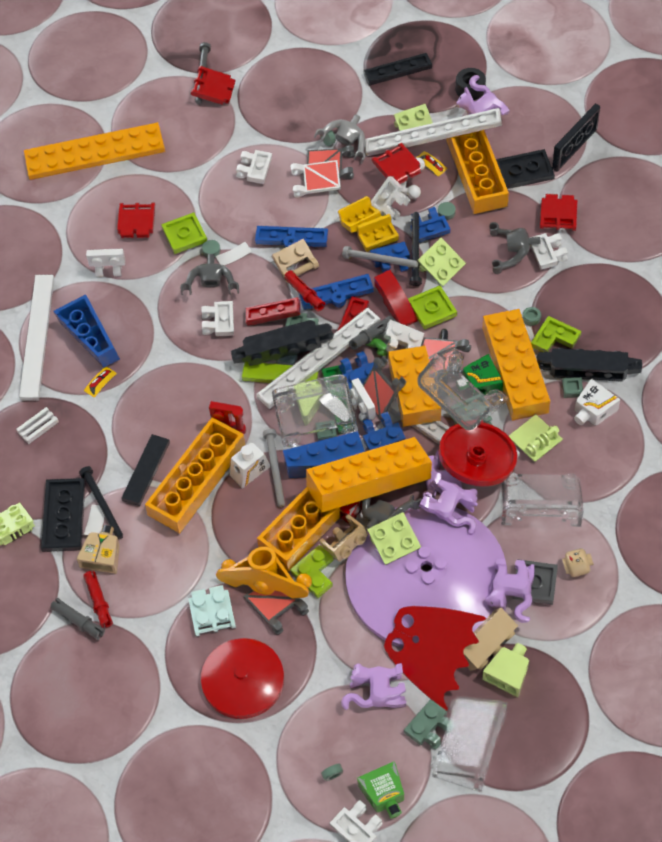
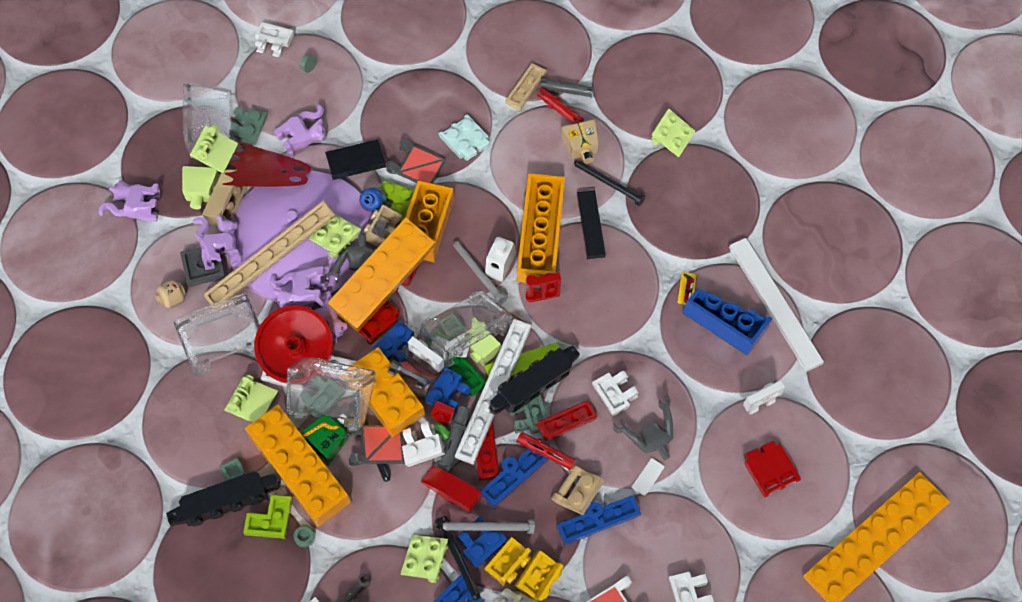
camera: 150 degrees right, 5 degrees up
(36, 423) = (716, 211): white tile -> none
(63, 515) = (635, 161): black tile -> none
(95, 520) = (604, 165): white sticker -> none
(116, 642) = (526, 87): none -> tan tile
(184, 233) = (711, 474): lime plate -> none
(211, 247) = (673, 471): sand green tile -> none
(242, 678) = (412, 101): red dish -> none
(263, 574) = (432, 160): light orange piece -> none
(321, 452) = (433, 294): blue wedge -> none
(335, 629) = (355, 159): none -> black tile
(339, 570) = (372, 199): none -> blue head
(371, 353) = (442, 412): none -> red plate
(383, 789) = (264, 66): bright green torso -> none
(432, 307) = (410, 498): lime plate -> none
(465, 548) = (270, 254): none -> tan tile
(479, 684) = (214, 148): none -> yellowish green hinge
(583, 675) = (135, 204): none -> lavender animal
(595, 404) = (203, 455): white torso -> none

